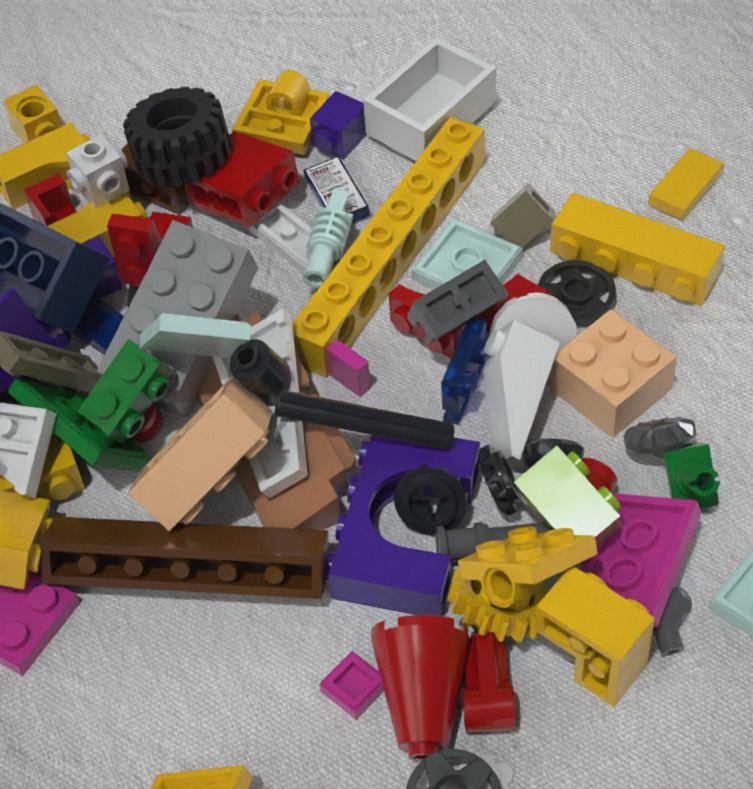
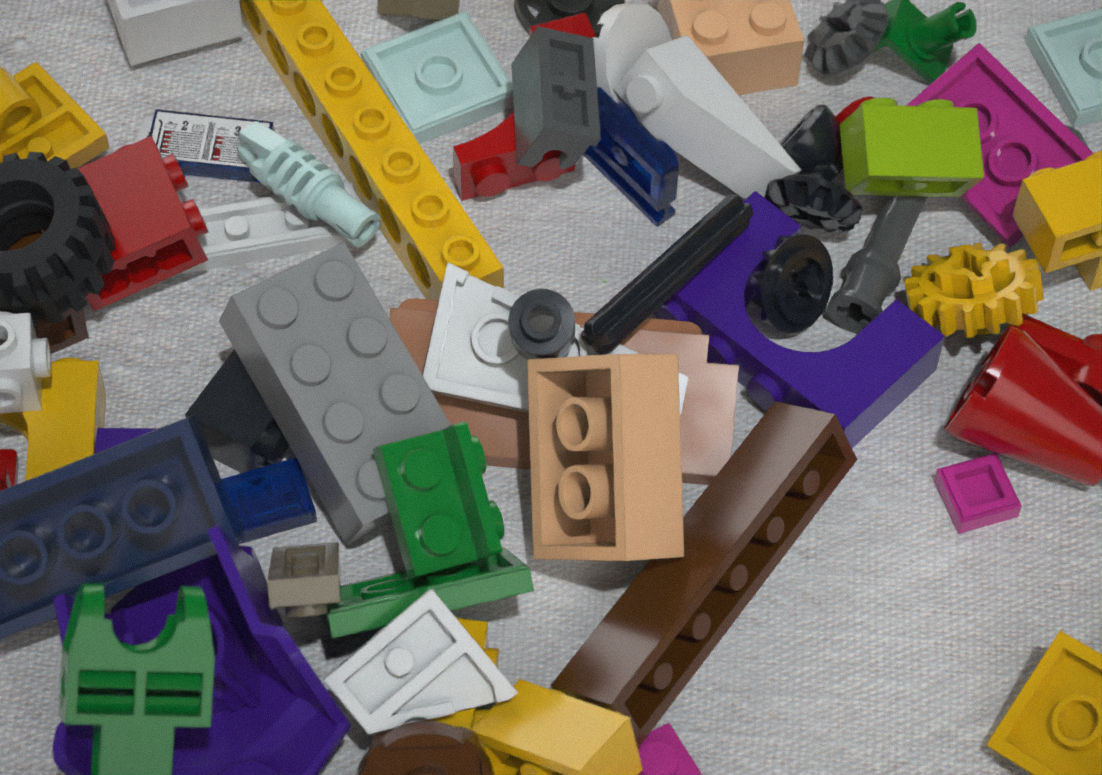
camera: 65 degrees left, 5 degrees up
(137, 241) = (183, 372): red arch -> none
(194, 335) = (457, 361): light aqua tile -> none
(338, 125) = (103, 79): dark purple brick -> none
(348, 368) = (531, 266): dark pink tile -> none
(521, 563) = (972, 213): yellow plate -> none

